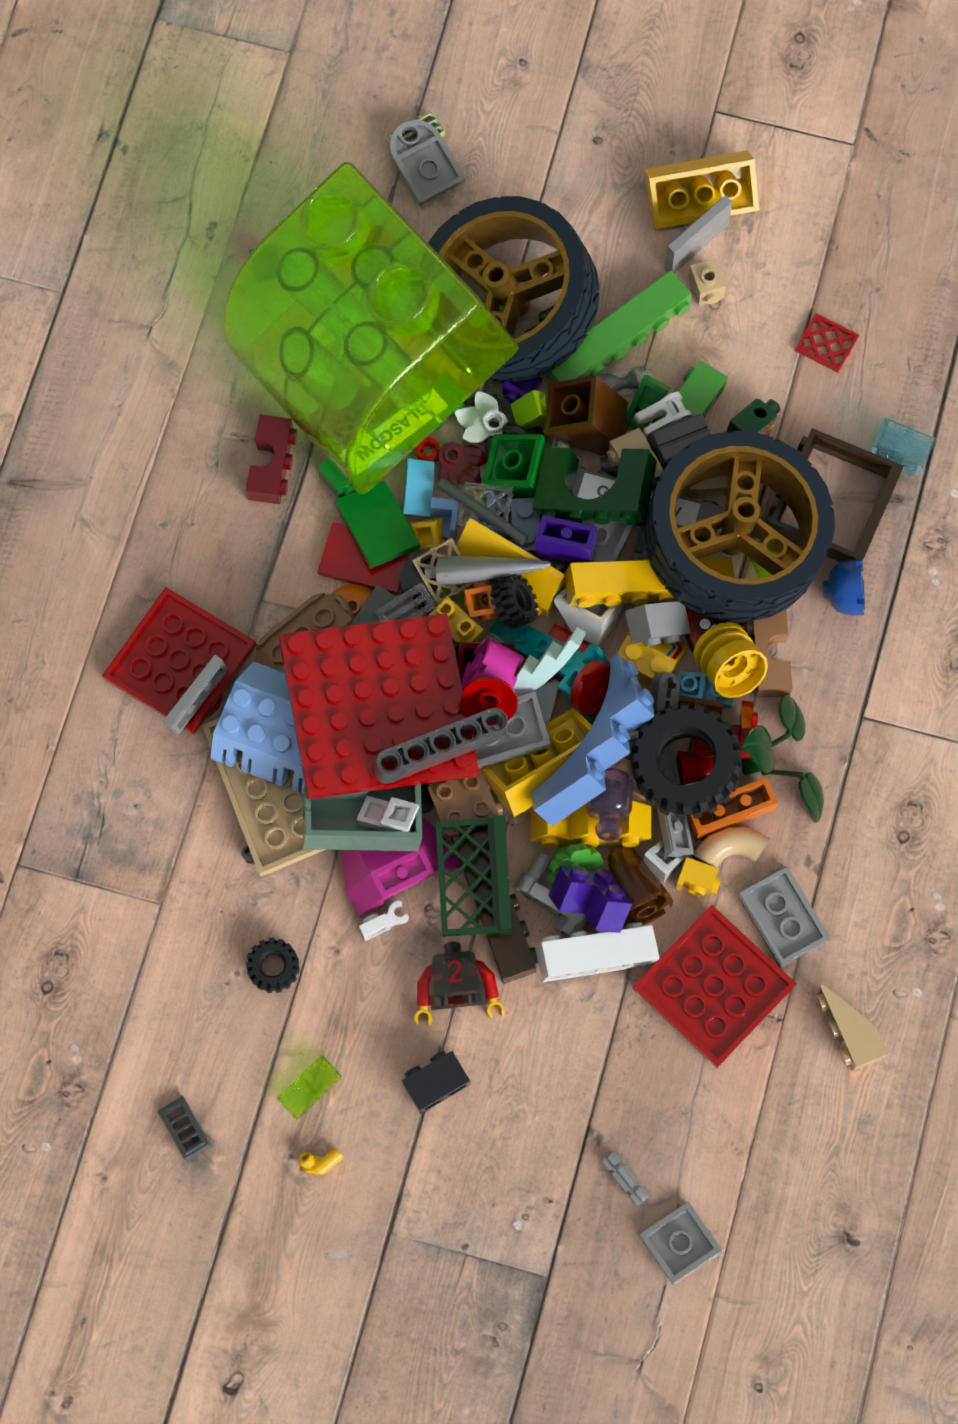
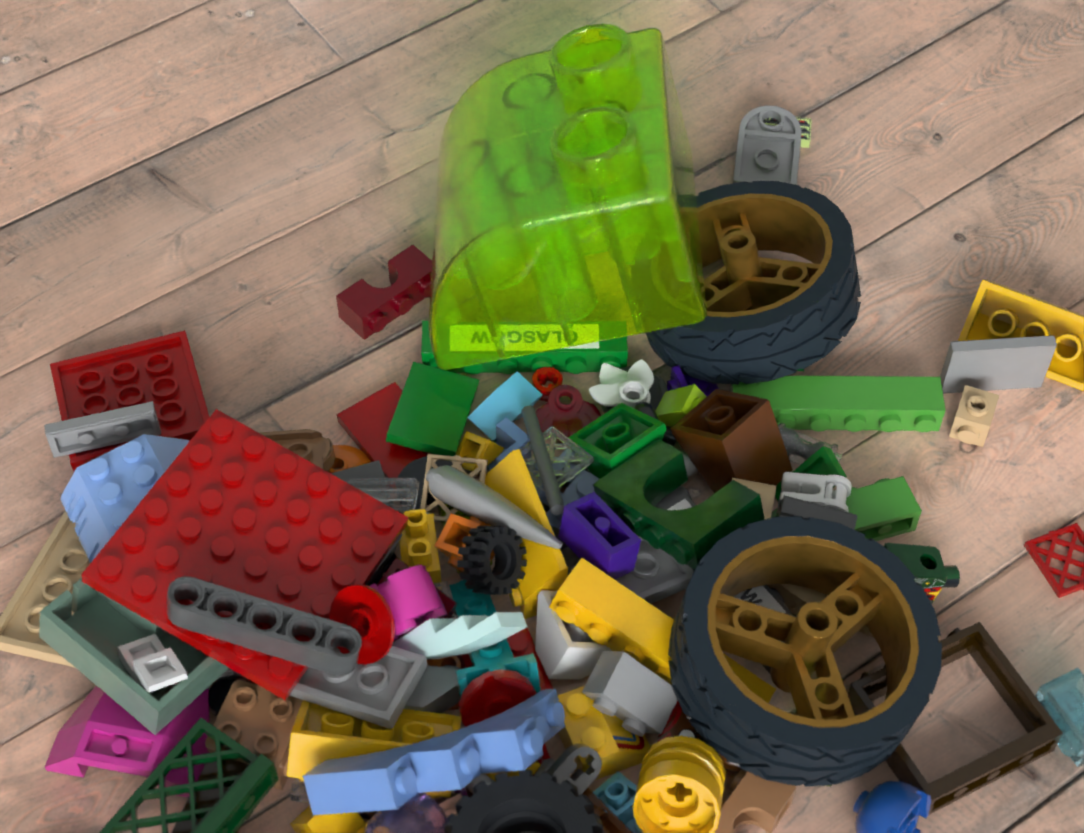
camera: 35 degrees right, 20 degrees down
(376, 925) = (53, 790): white plate -> none

